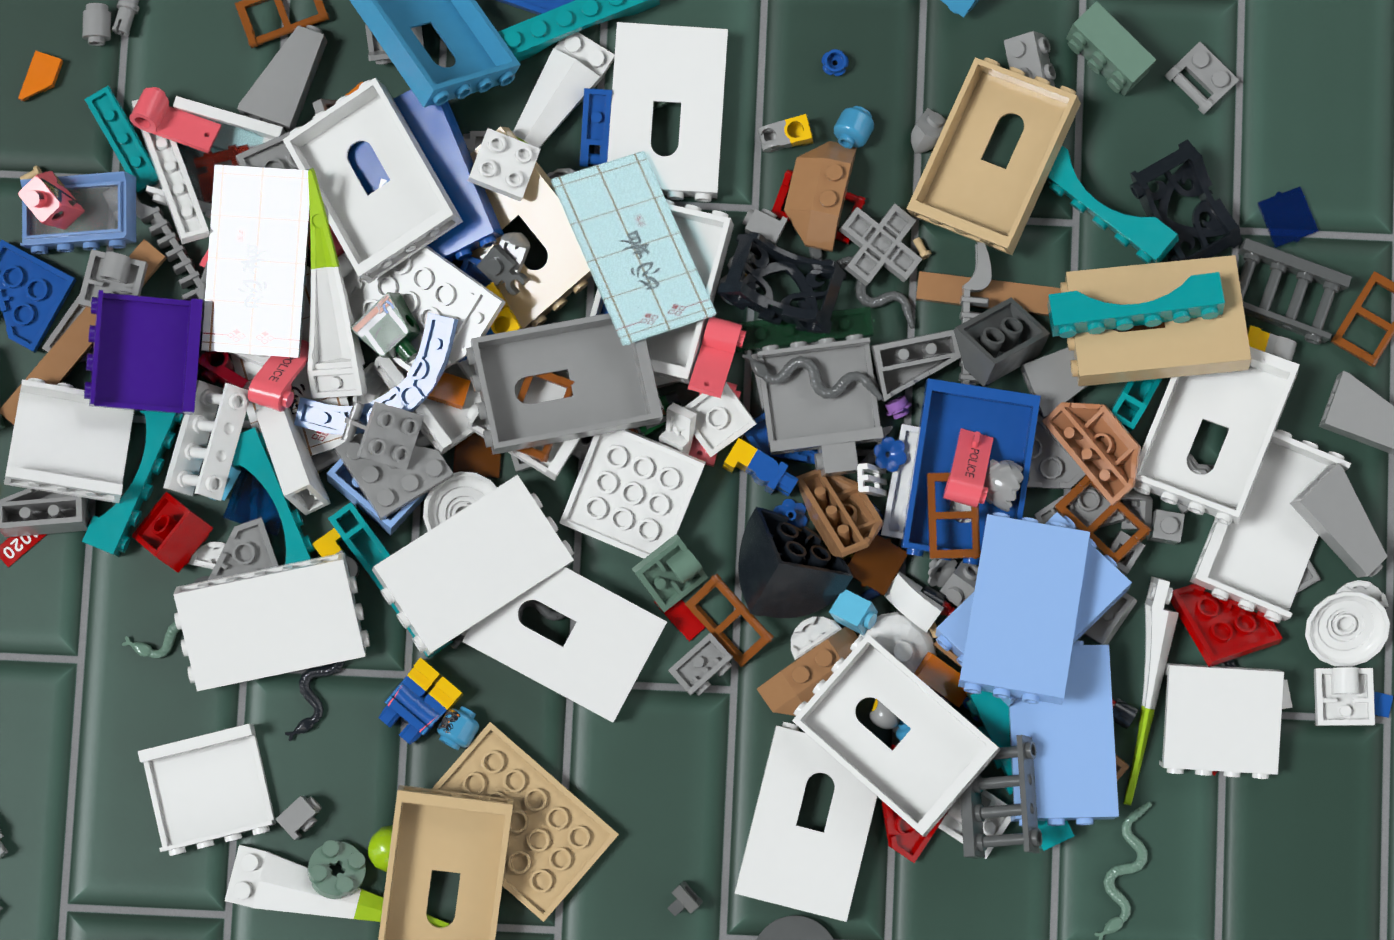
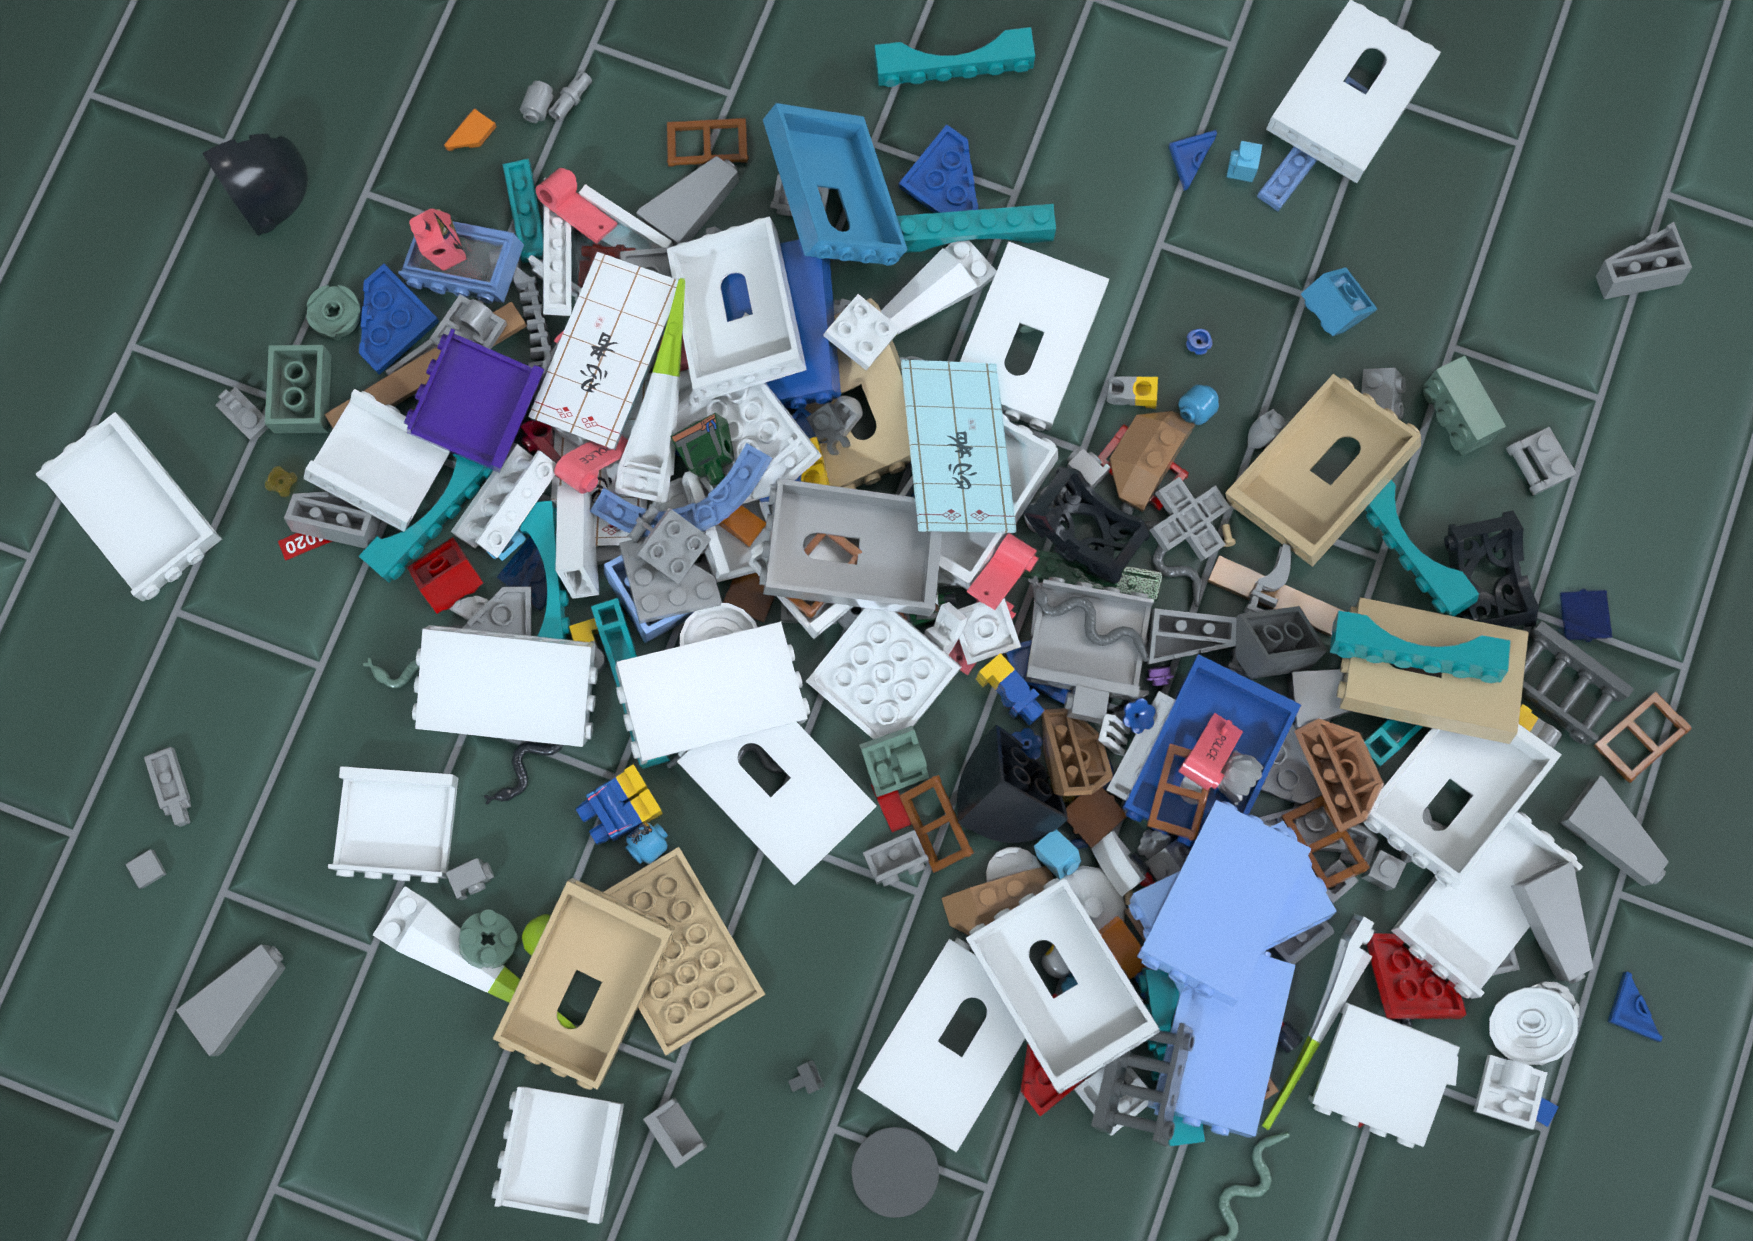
camera: 20 degrees right, 5 degrees down
(595, 125) = (959, 327): blue plate -> none

